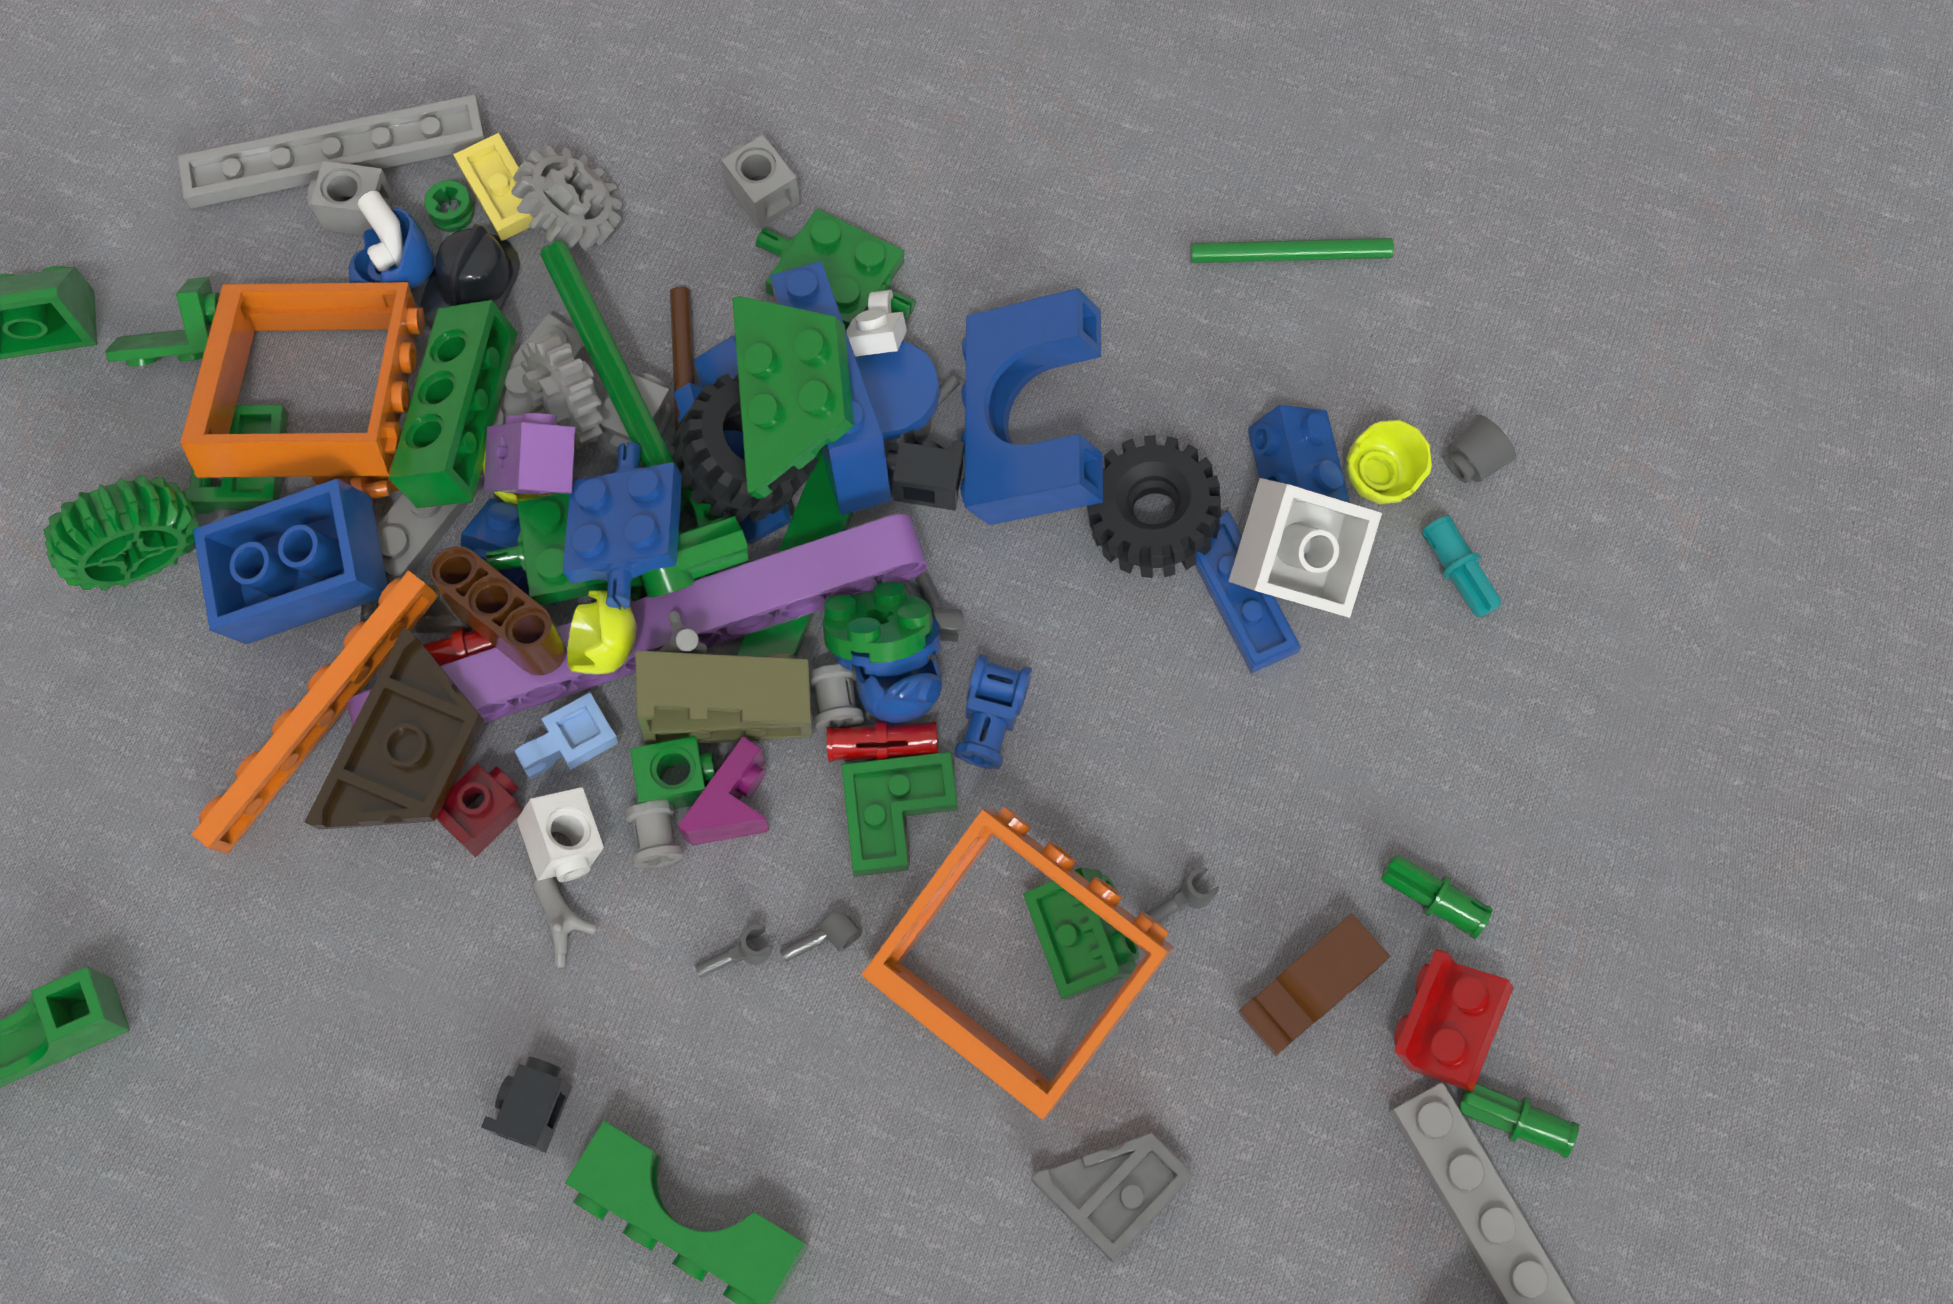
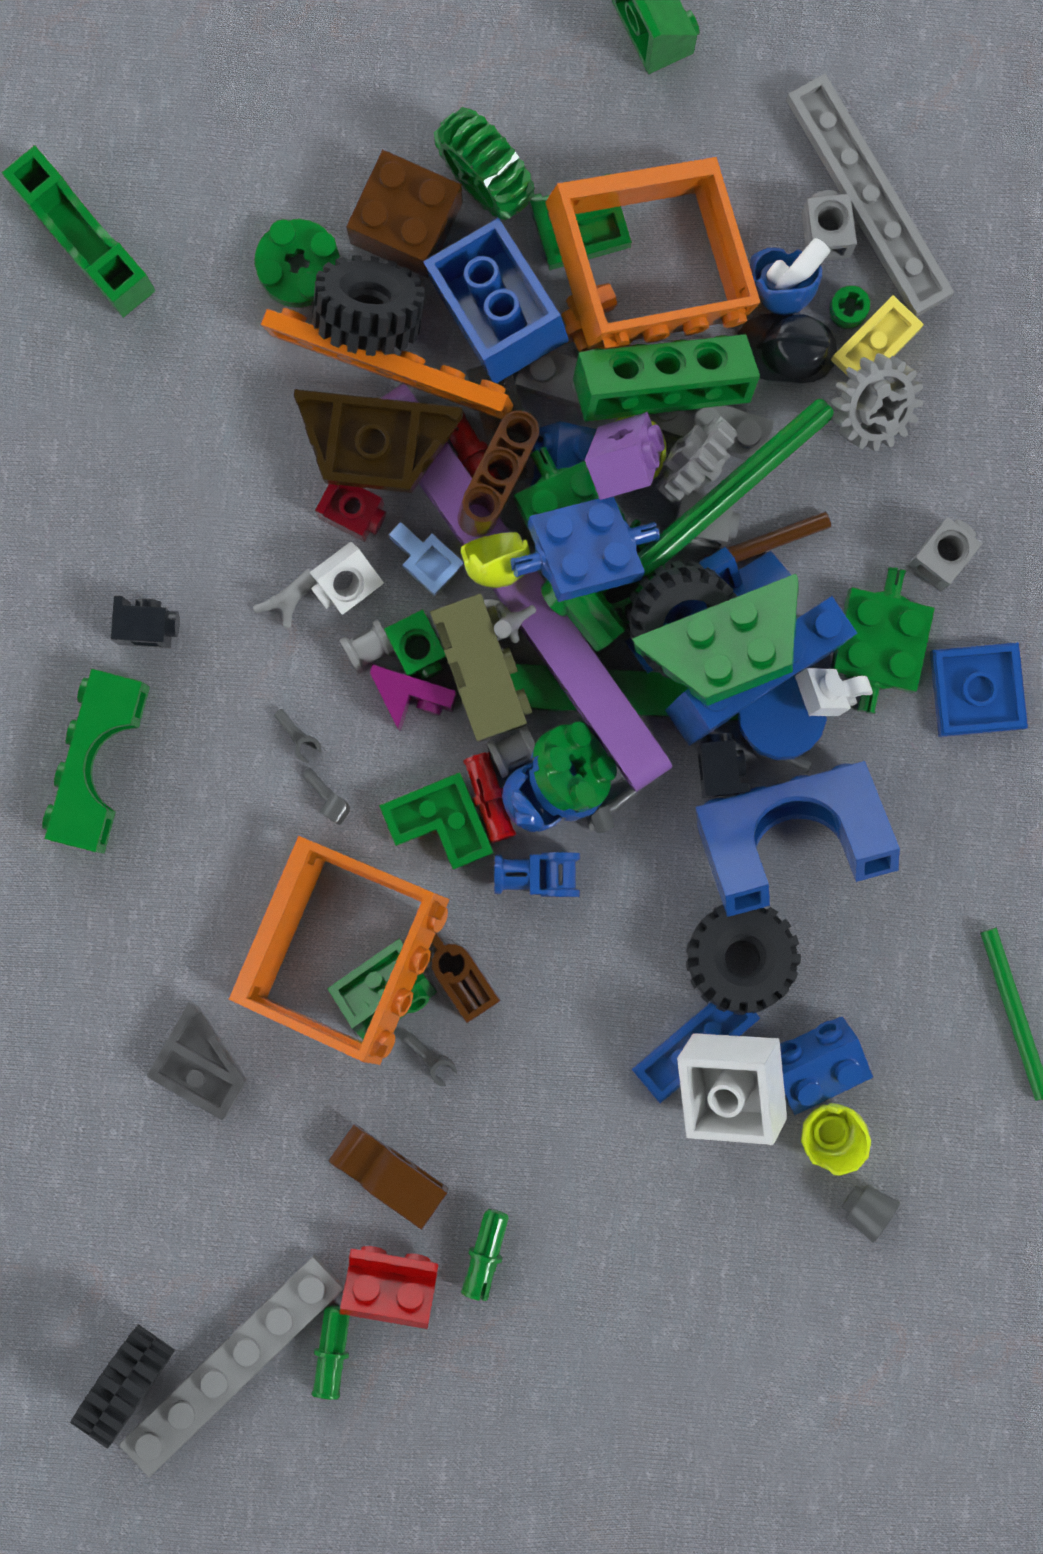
camera: 75 degrees right, 15 degrees up
(139, 764) = (285, 241): none -> green plate
(143, 646) = (404, 212): none -> reddish brown brick
(197, 310) = (664, 143): green bracket -> none
(236, 710) = (367, 305): none -> black tyre
(921, 193) = (978, 689): none -> blue tile
(1107, 826) = (455, 987): none -> reddish brown piece
(1462, 566) = (765, 1218): teal axle -> none

